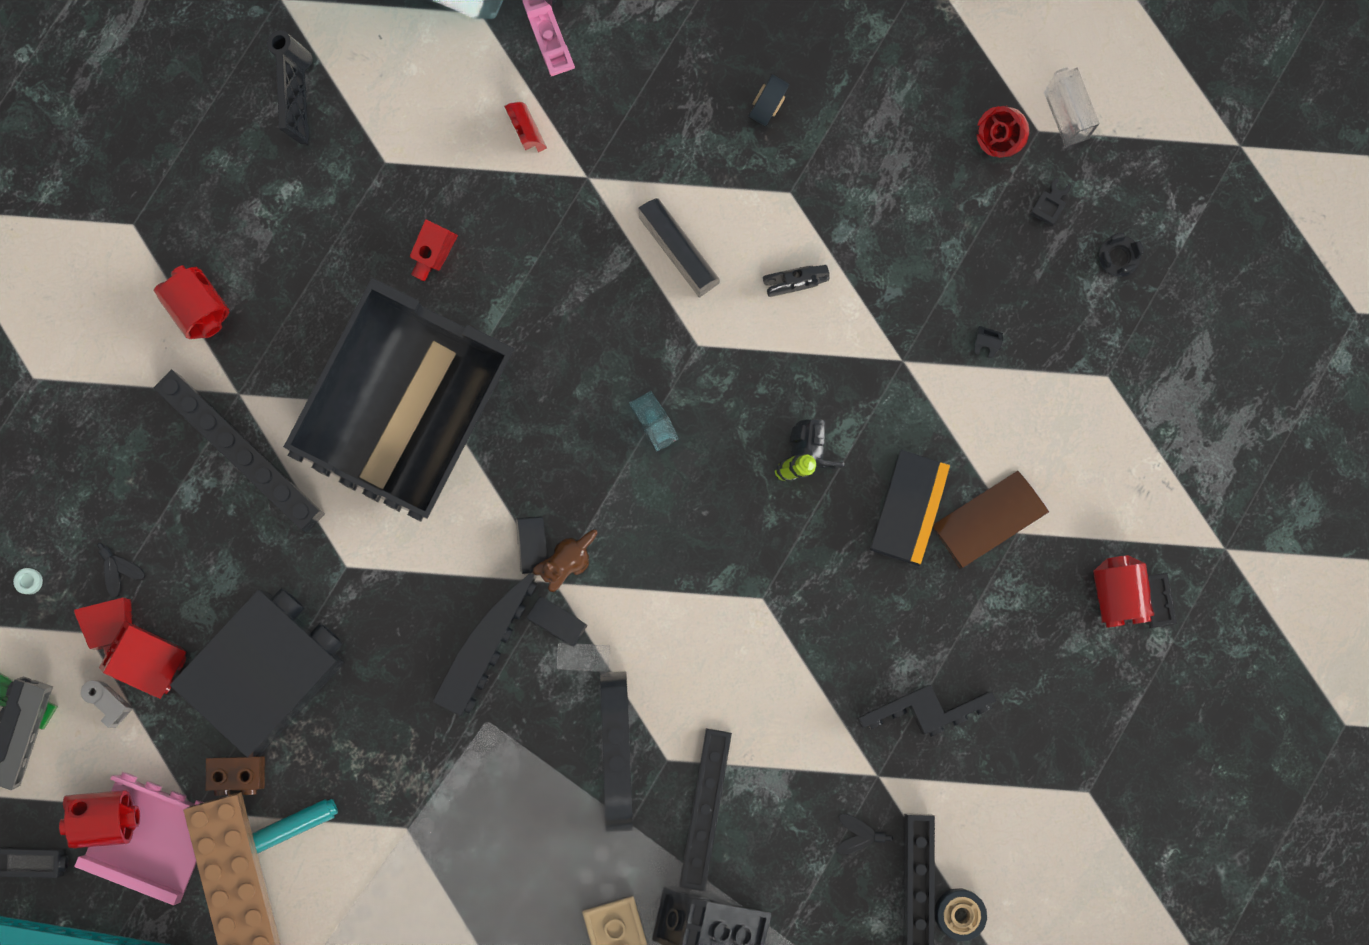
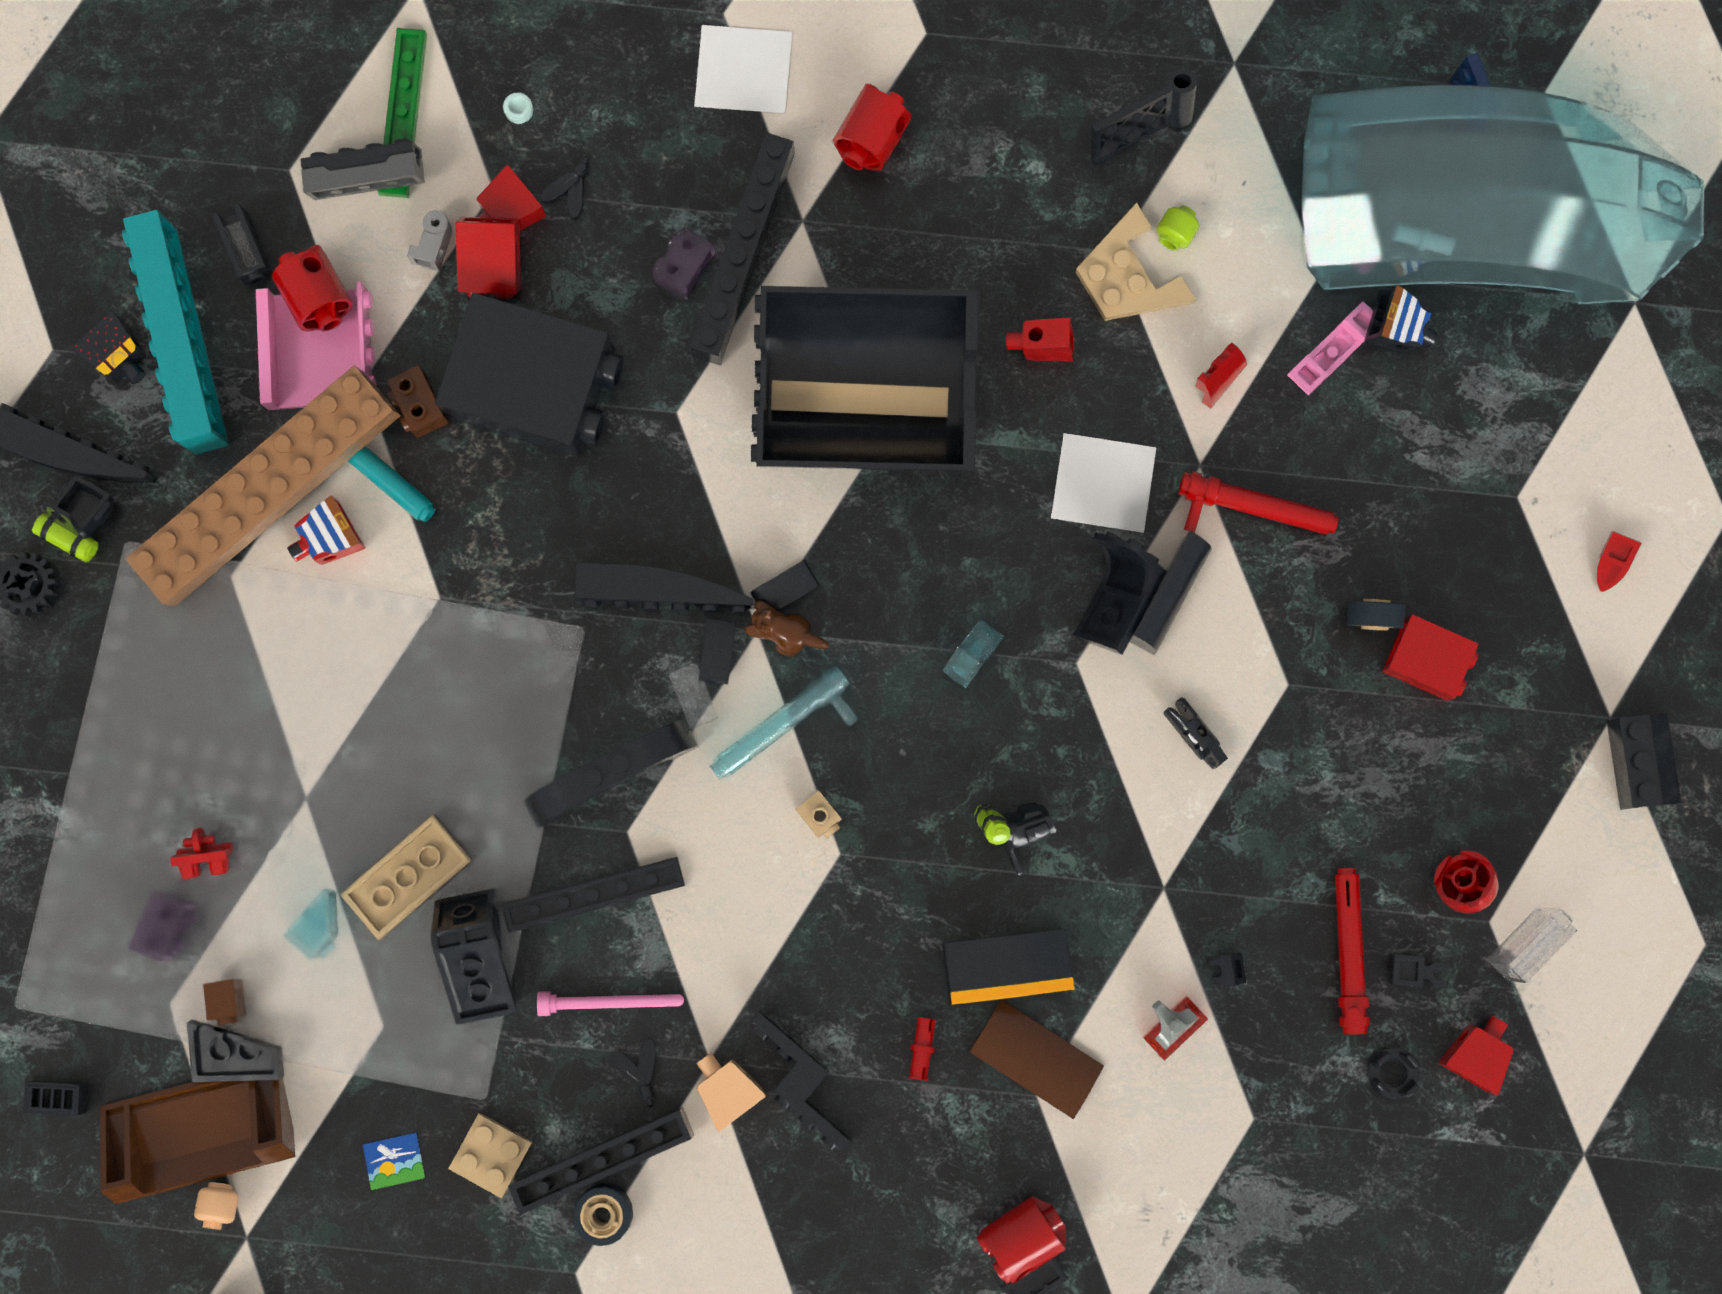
camera: 70 degrees right, 0 degrees up
(88, 383) = (743, 69): none -> white sticker
(227, 505) = (683, 263): none -> clear purple brick
(309, 899) = (325, 534): none -> torso
(392, 104) = (1177, 228): none -> lime head
(409, 169) = (1118, 279): none -> tan wing
(566, 257) = (1103, 483): none -> white sticker
(614, 177) = (1213, 491): none -> red cylinder
(629, 558) = (816, 695): none -> clear light blue cylinder
(663, 284) = (1123, 594): none -> black bracket
(726, 600) = (819, 815): none -> tan brick
(776, 883) = (550, 1003): none -> bright pink piece
(821, 76) = (1431, 658): none -> red brick
(908, 771) = (727, 1090): none -> light nougat torso
(943, 603) = (922, 1048): none -> red pin
(1012, 403) = (1174, 1026): none -> piece
(1051, 258) = (1351, 959): none -> red cylinder
(1135, 185) = (1480, 1055): none -> red torso

